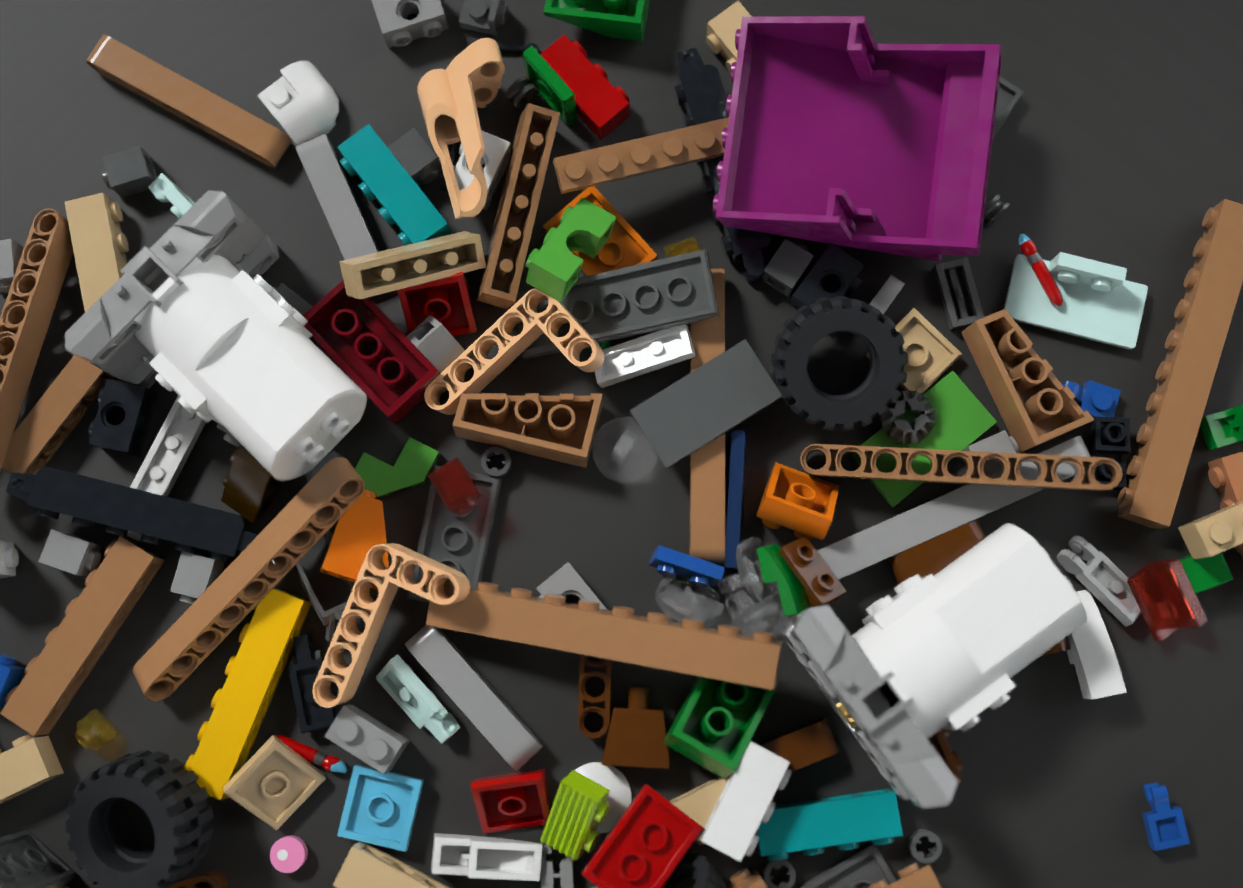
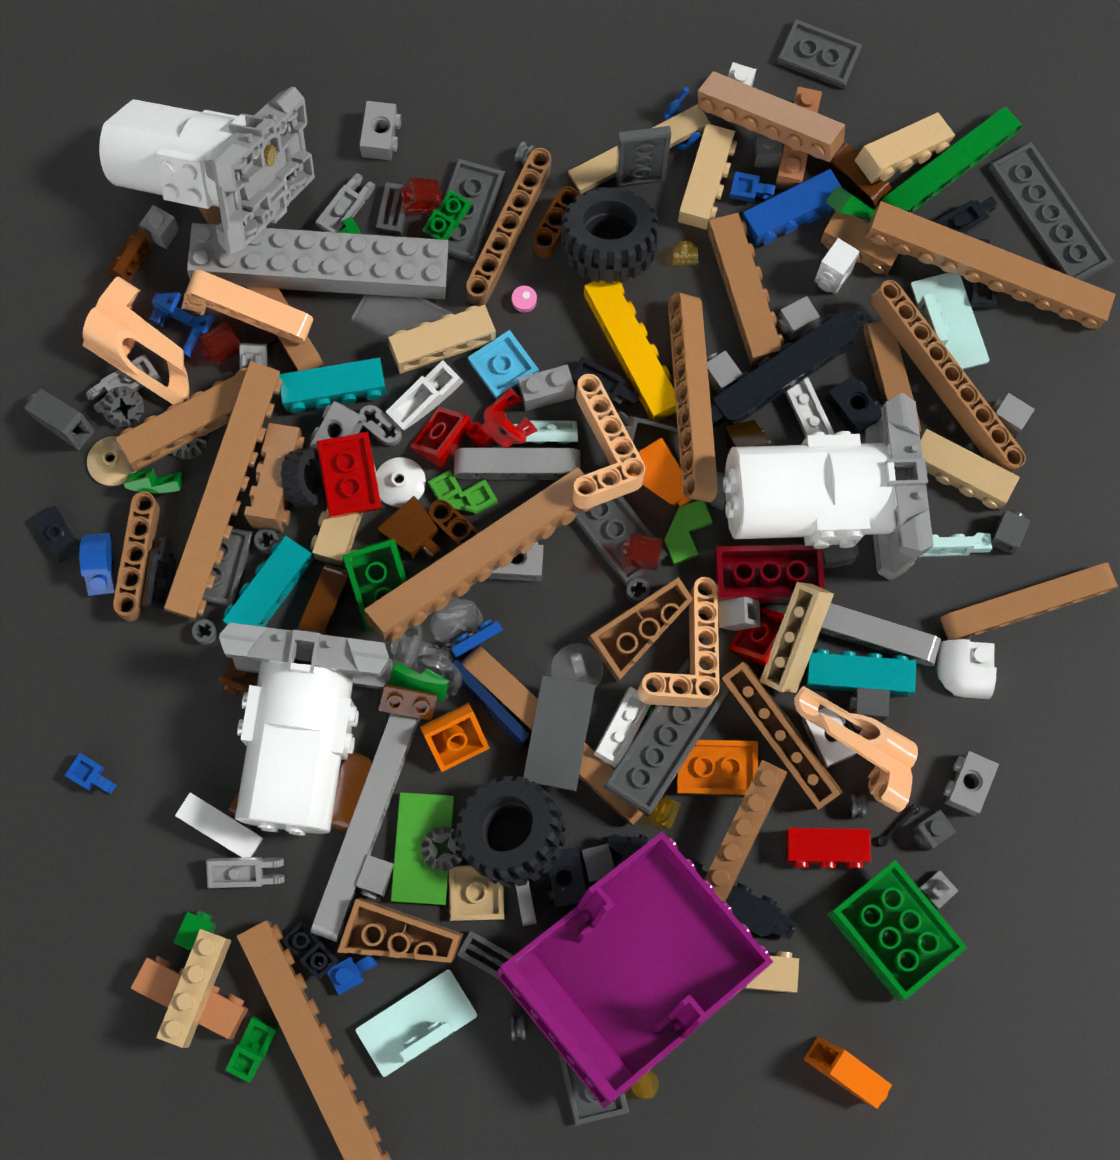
camera: 125 degrees right, 5 degrees down
(274, 783) = (568, 321): tan tile -> none
(329, 763) = (568, 352): red piece -> none
(462, 751) = (489, 433): none -> red piece
(550, 86) = (842, 820): green tile -> none
(552, 707) = (471, 501): none -> bright green tile
(575, 815) = (400, 458): lime brick -> none
(581, 229) = (730, 757): bright green arch -> none
(746, 802) = (321, 551): white brick -> none
(974, 461) = (382, 853): medium nougat beam -> none
(1040, 269) = (454, 1017): red piece -> none
(1166, 598) = (201, 894): clear red panel -> none

